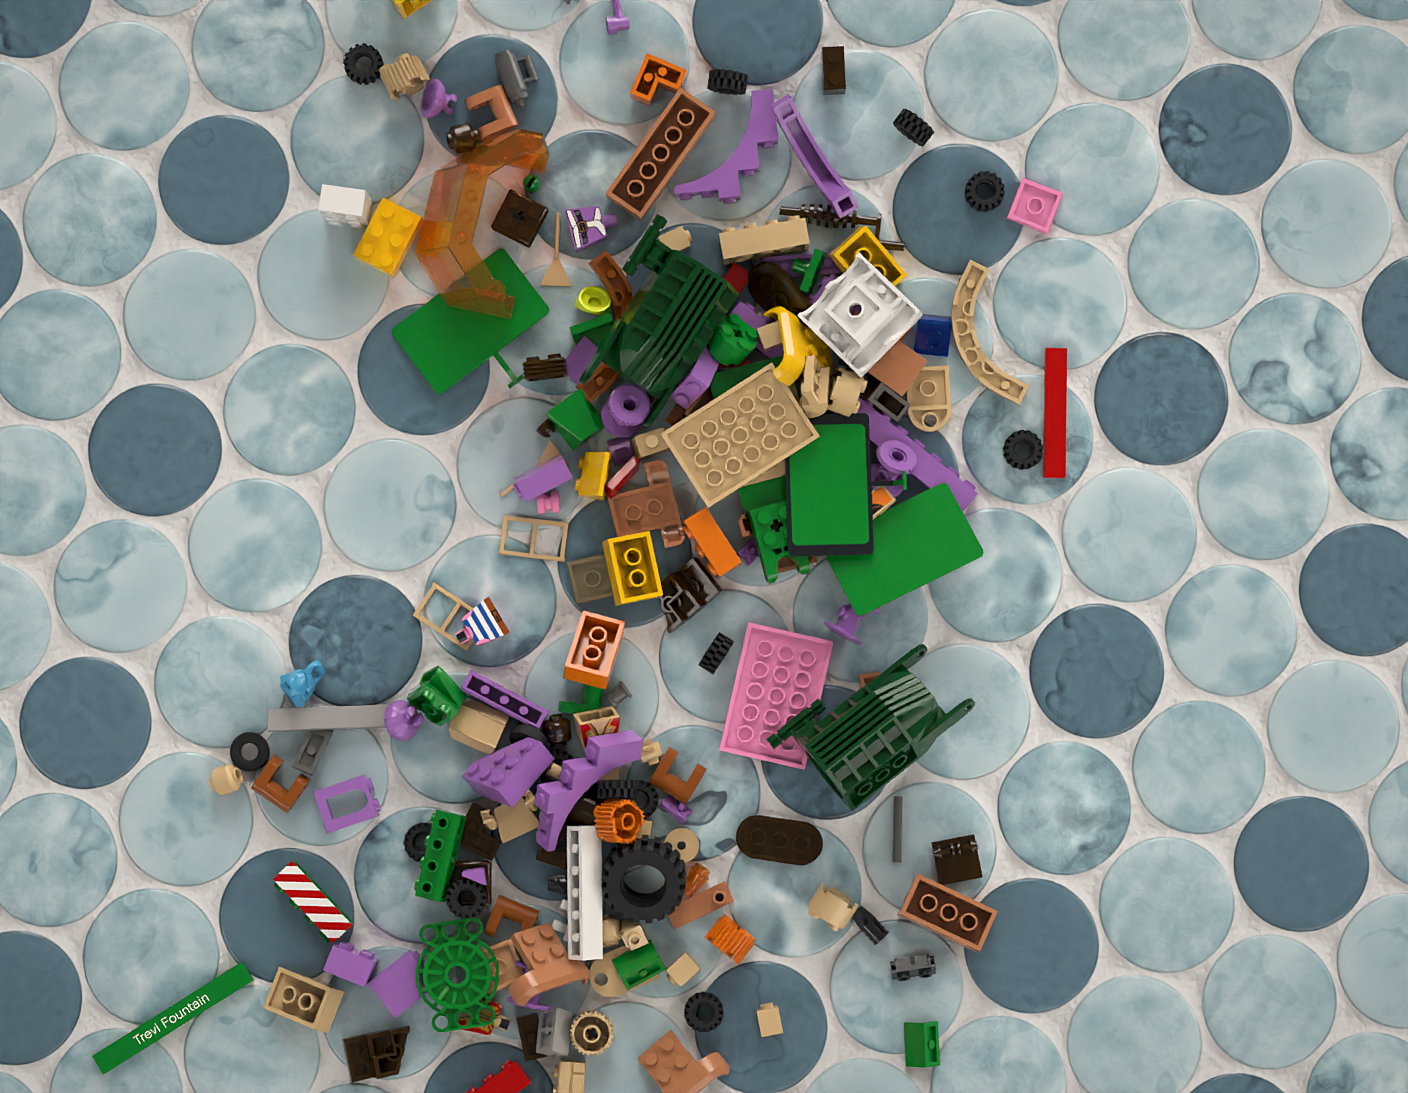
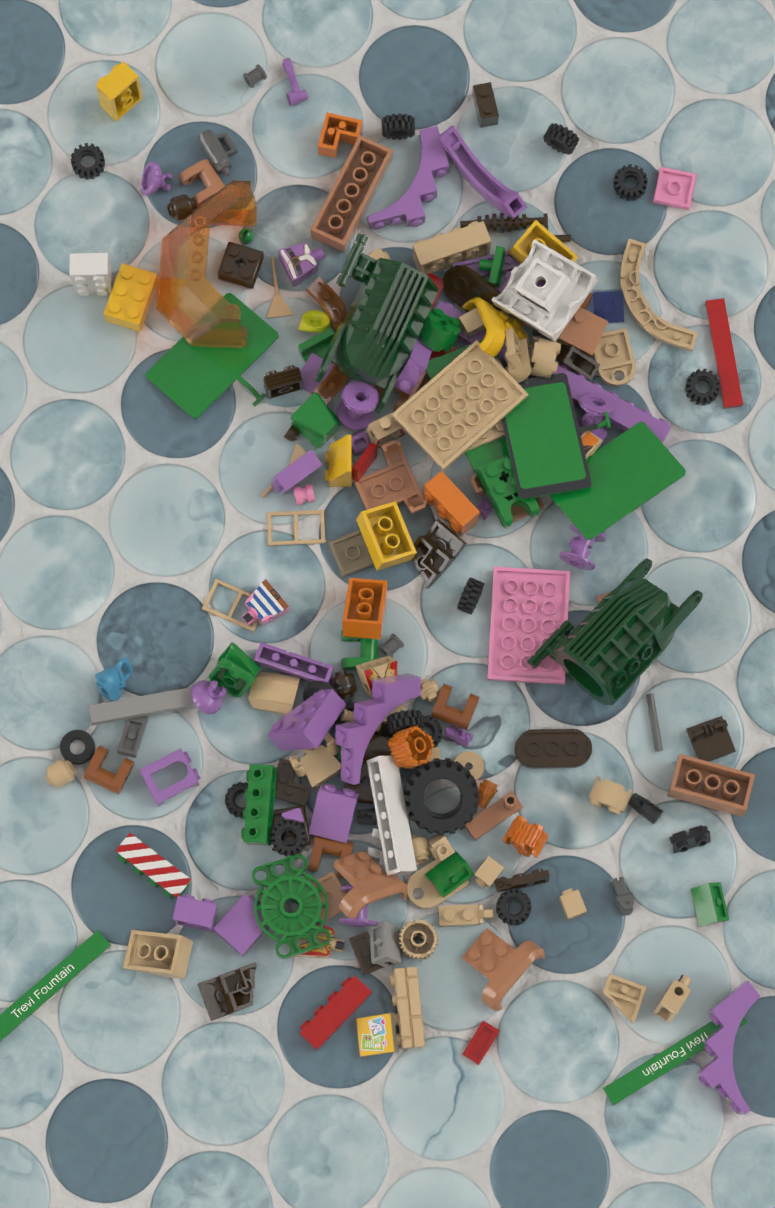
camera: 10 degrees left, 10 degrees down
(404, 76) = (124, 163): tan brick -> none
(521, 876) = (333, 813): none -> medium lavender brick
(647, 1011) = (463, 915): none -> tan hinge
(716, 984) = (522, 881): none -> dark brown hinge
(827, 1022) = (624, 899): none -> dark grey piece

